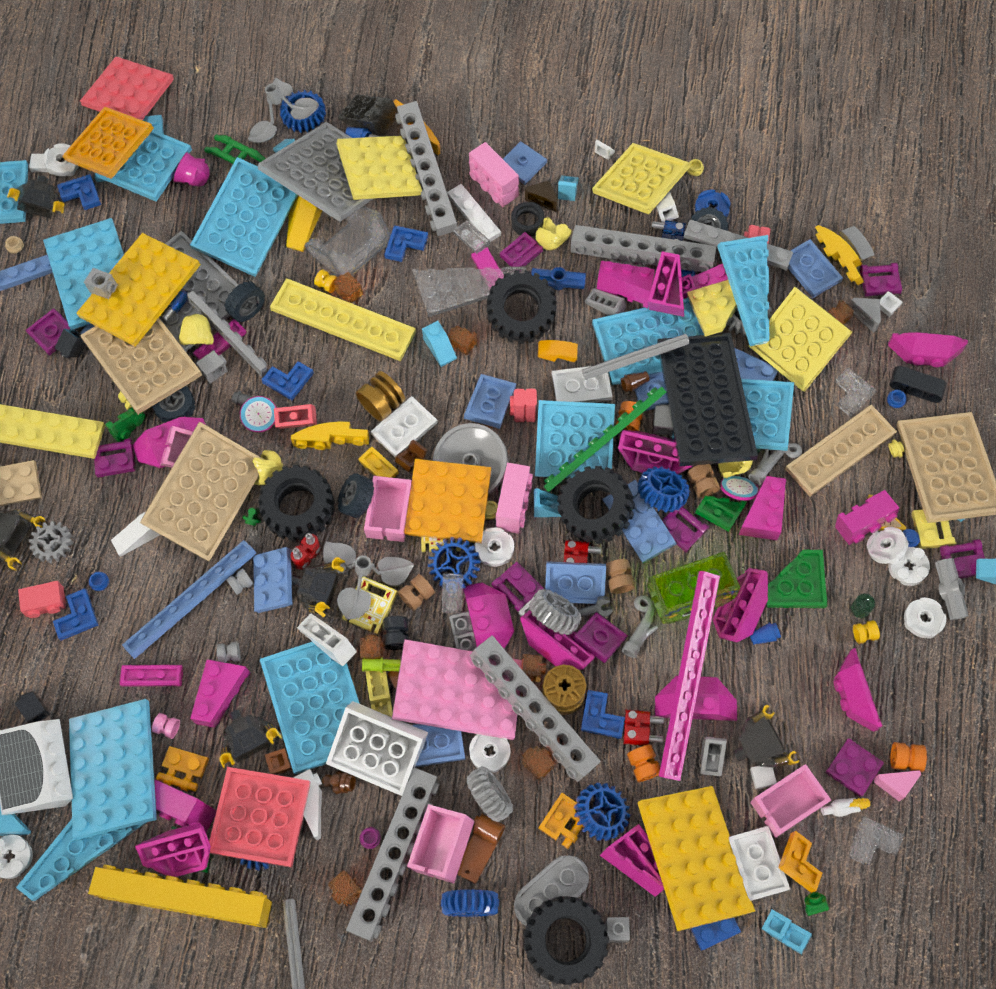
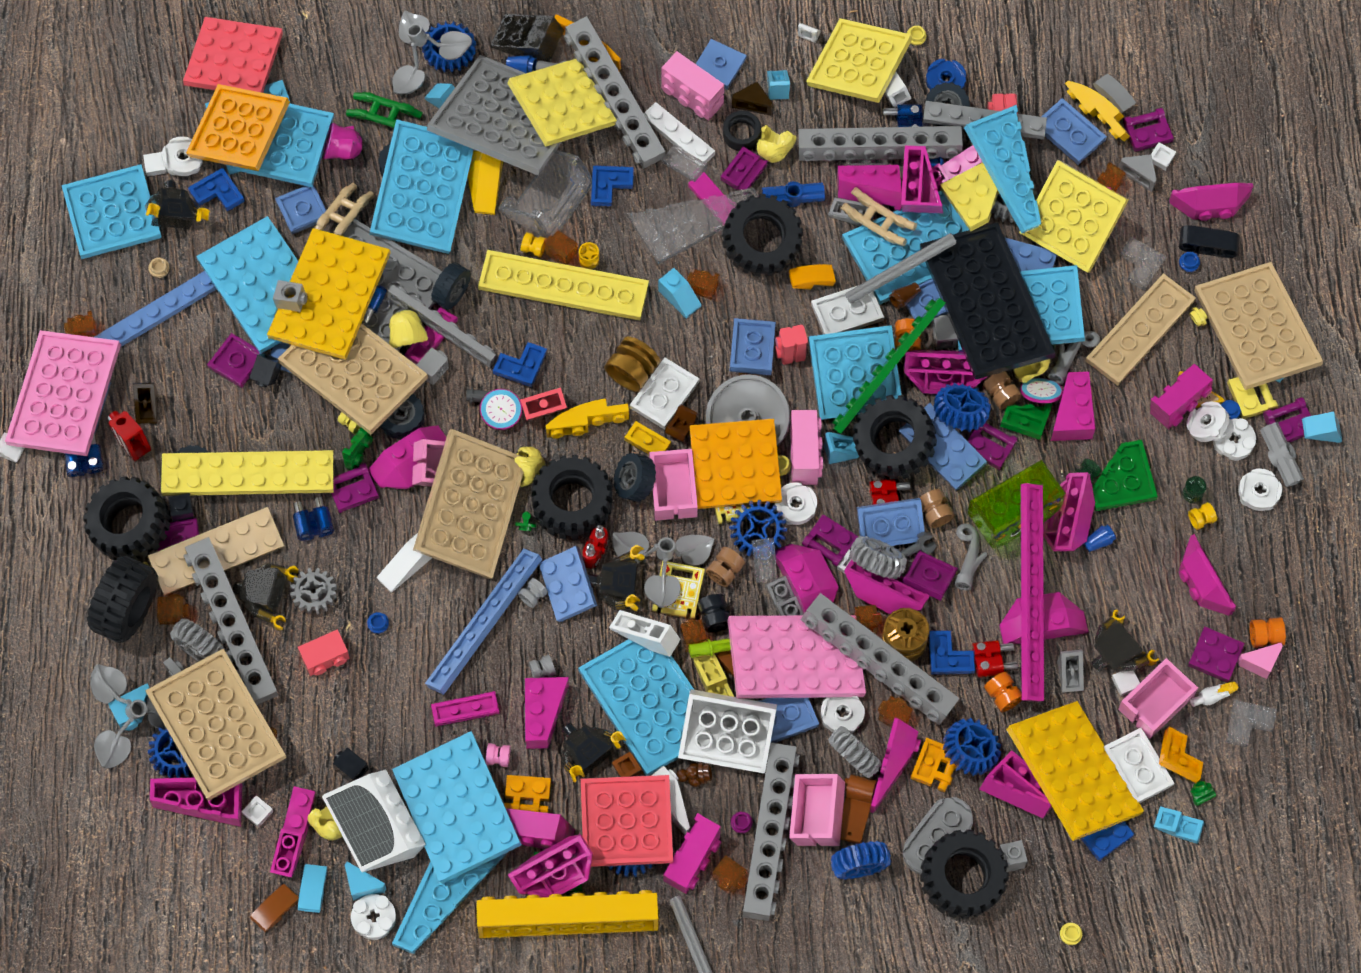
camera: 15 degrees left, 0 degrees up
(70, 482) = (312, 523): none -> clear blue piece
(81, 616) = (371, 664): blue plate -> none
(145, 218) = (301, 208): none -> medium blue plate
(177, 216) = (342, 200): none -> tan piece
(314, 863) = (693, 854): none -> dark pink wedge
(370, 298) = (589, 250): none -> yellow wheel
(532, 802) = (898, 754): none -> dark pink wedge
(624, 300) = (874, 207): none -> tan piece
(769, 566) = (1089, 466): none -> clear green wheel

